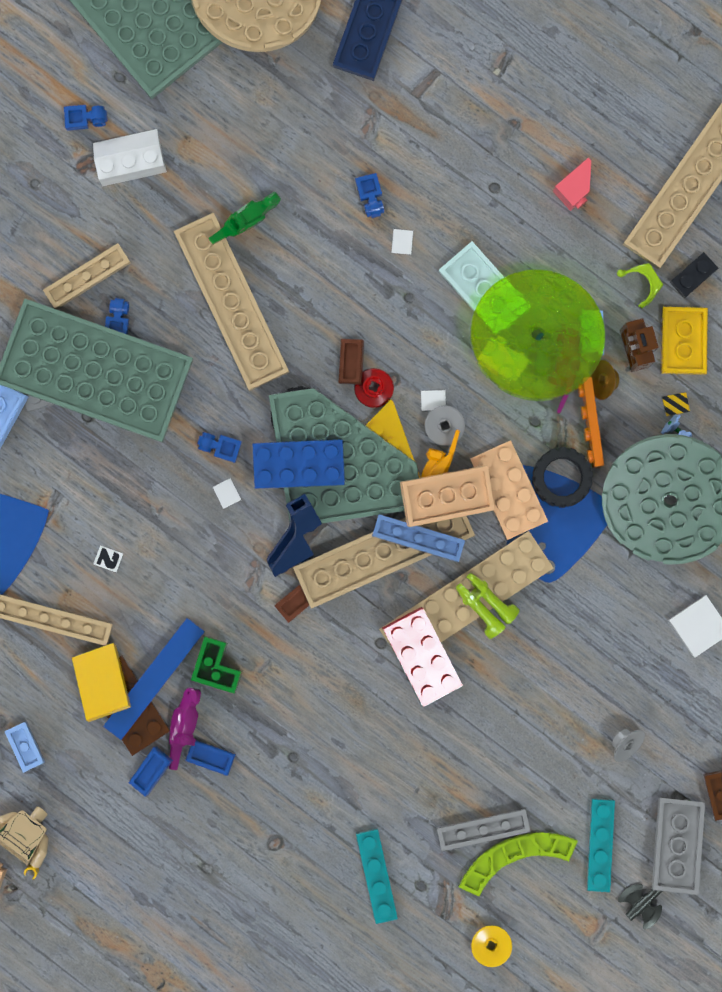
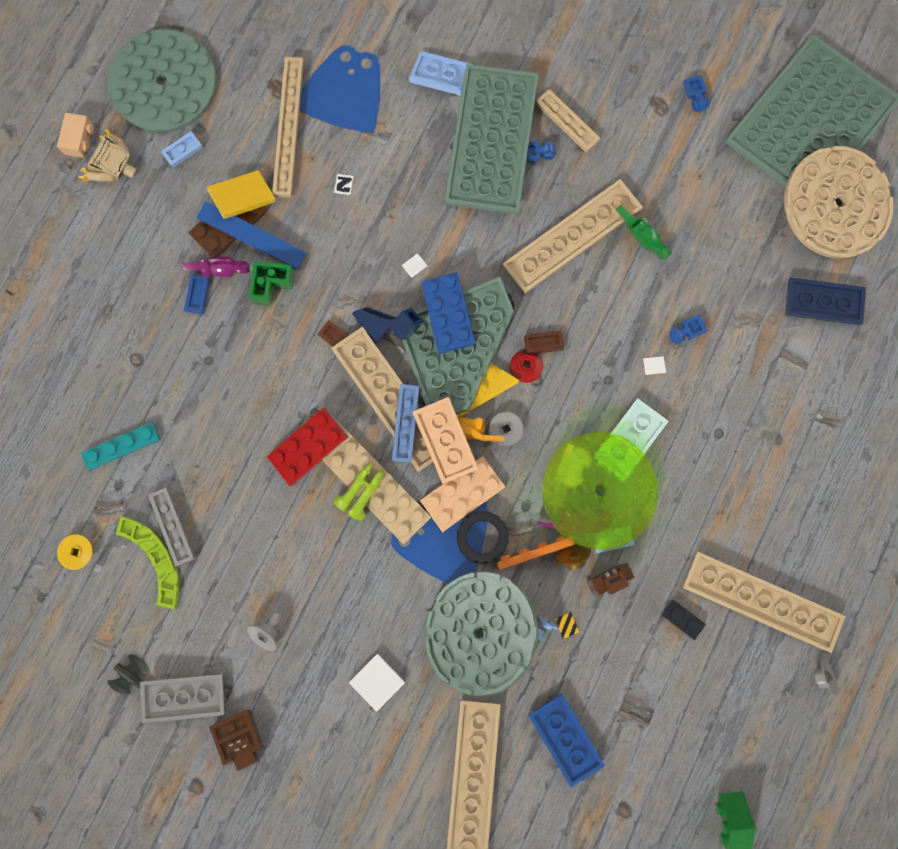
camera: 80 degrees right, 5 degrees down
(129, 157) = (671, 133): white slope -> none
(150, 771) = (177, 249): blue tile -> none
(225, 448) = (451, 255): blue plate -> none
(432, 399) = (527, 416): white sticker -> none
(575, 186) = (735, 500): coral slope -> none
(600, 845) = (174, 630): teal plate -> none
(648, 271) = (668, 585): lime helmet -> none
(684, 340) = (624, 622): yellow tile -> none

